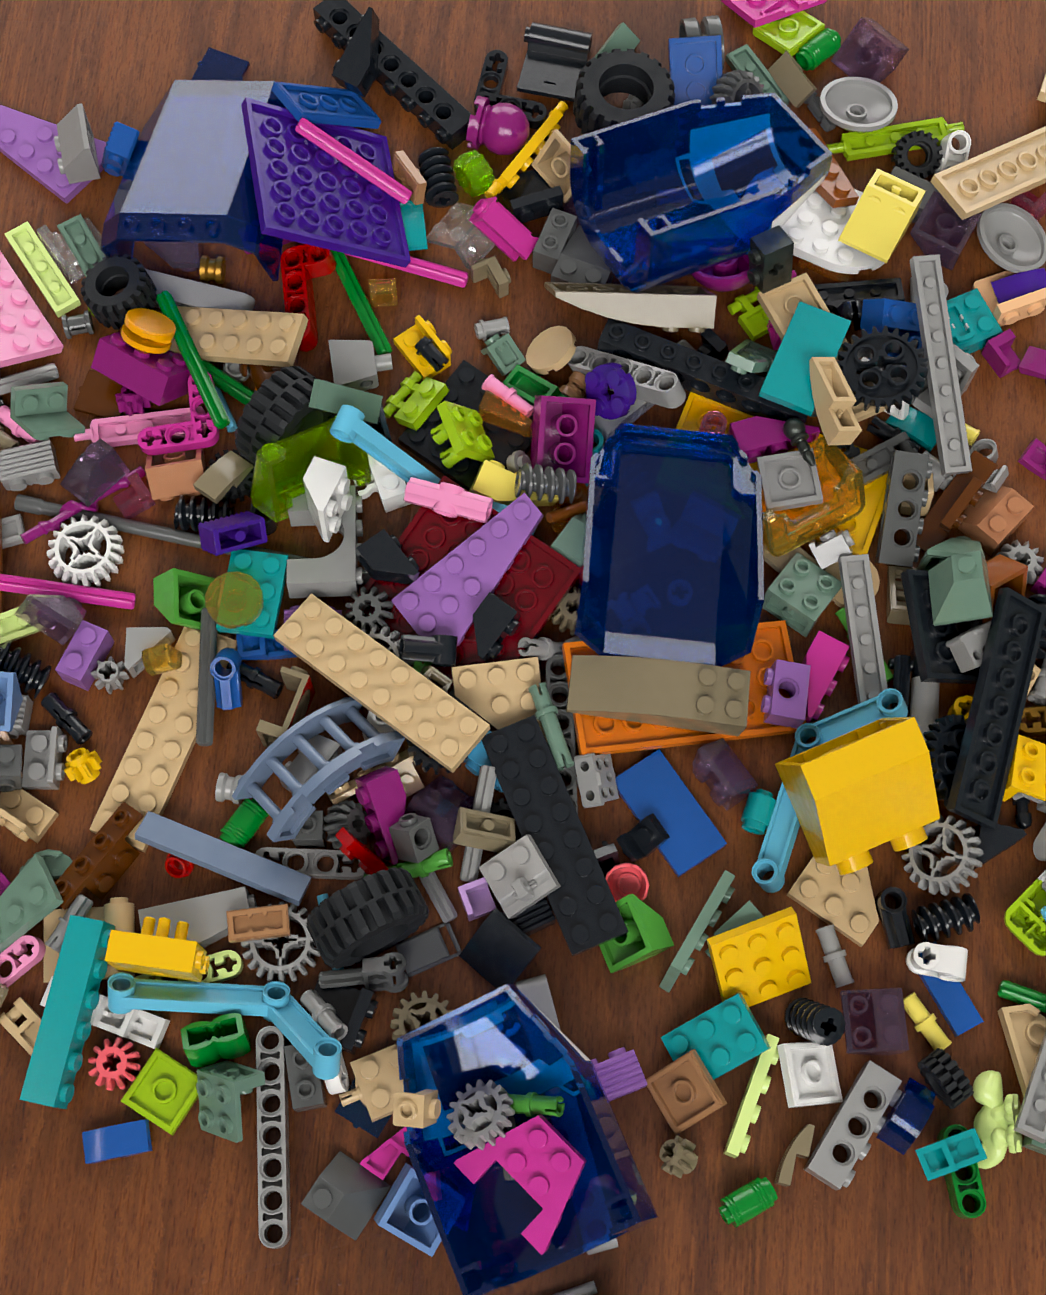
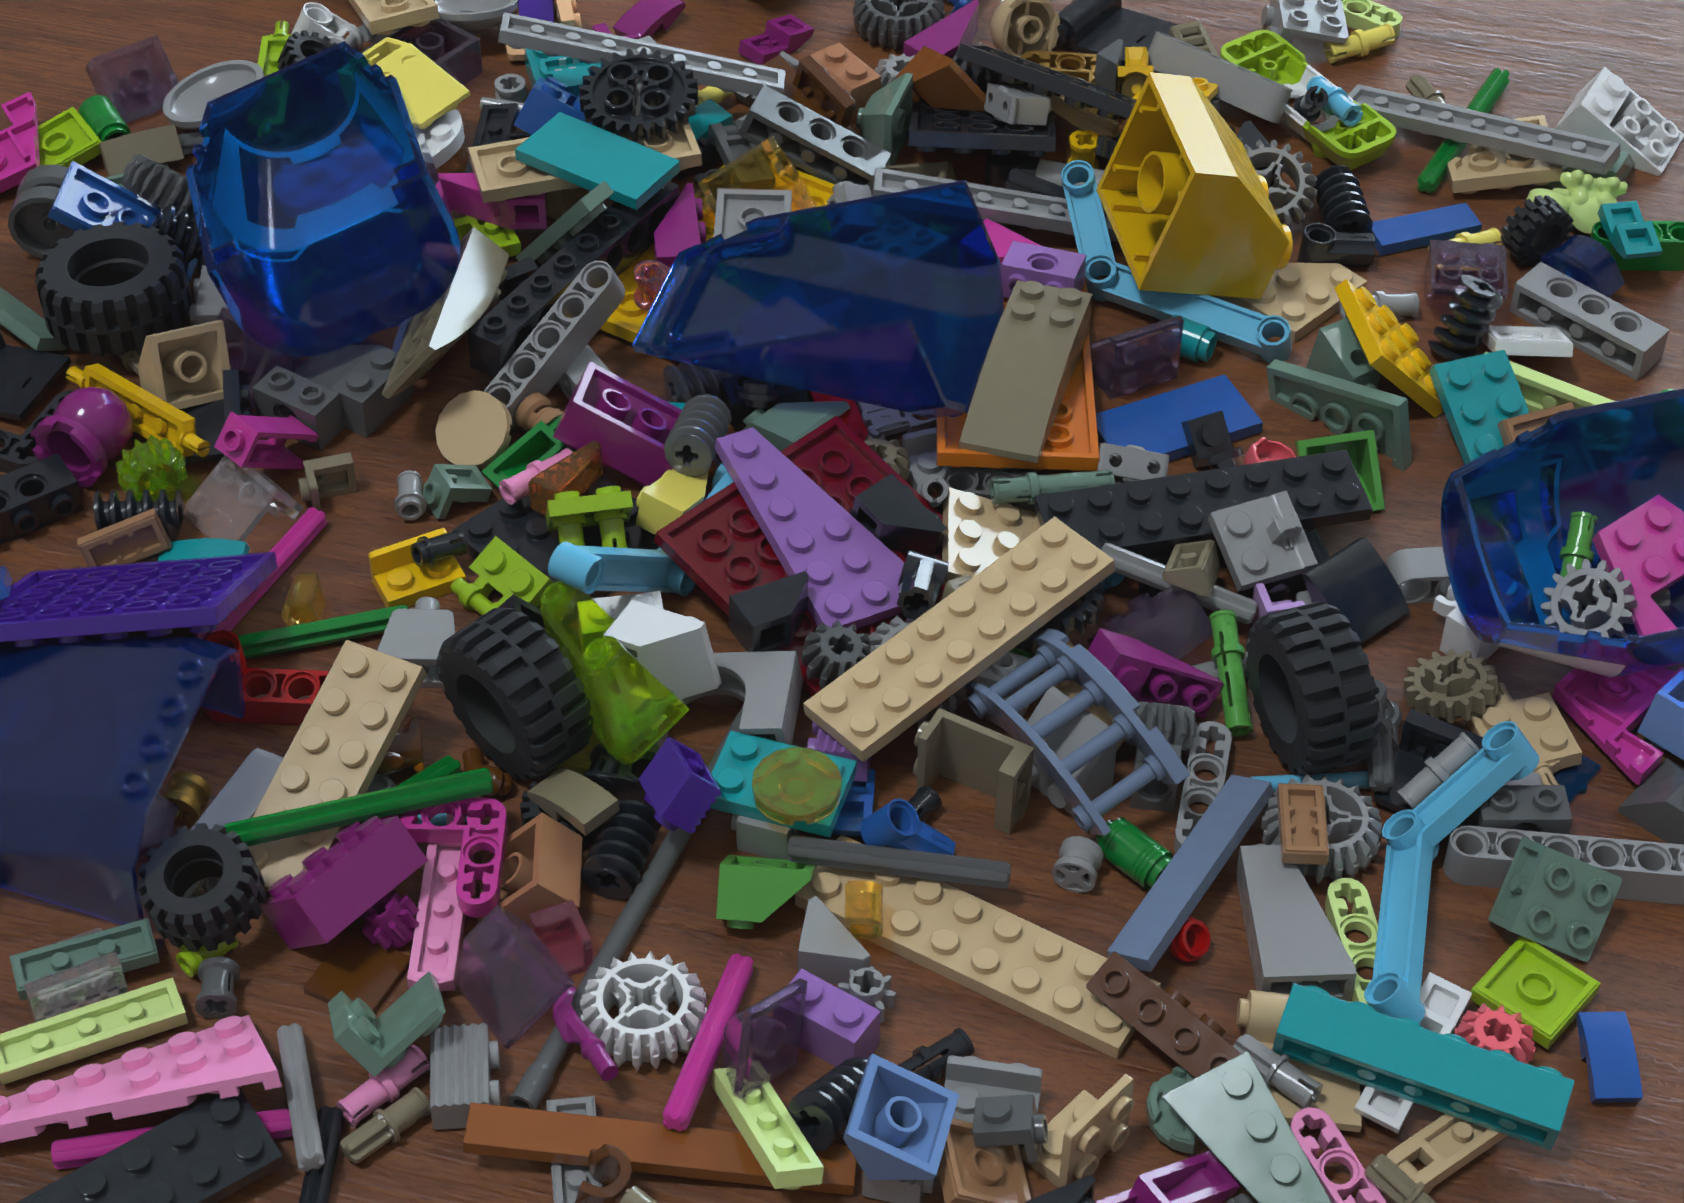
camera: 80 degrees left, 25 degrees down
(83, 765) = (1015, 1038): yellow gear -> none
(148, 330) = (296, 844): light orange head -> none
(158, 953) = (1352, 919): yellow piece -> none
(210, 1041) = (1466, 907): green brick -> none
(332, 396) = (517, 598): sand green tile -> none
(353, 161) = (87, 571): dark pink axle -> none
(354, 848) = (1212, 695): red plate -> none
(413, 838) = (1194, 642): dark grey brick -> none
(416, 1109) = (1597, 624): tan bracket -> none
(448, 500) = (701, 524): bright pink piece -> none
(517, 460) = (638, 482): light grey plate -> none
(624, 390) = (567, 333): dark purple plate -> none
(770, 259) = (452, 152): pearl dark grey brick -> none
(795, 431) = (691, 195): pearl dark grey bar -> none
(798, 1147) = (1614, 370): dark tan slope -> none
(833, 401) = (673, 135): tan slope -> none
(943, 962) = (1397, 213): white piece -> none
(960, 589) = (951, 84): sand green slope -> none

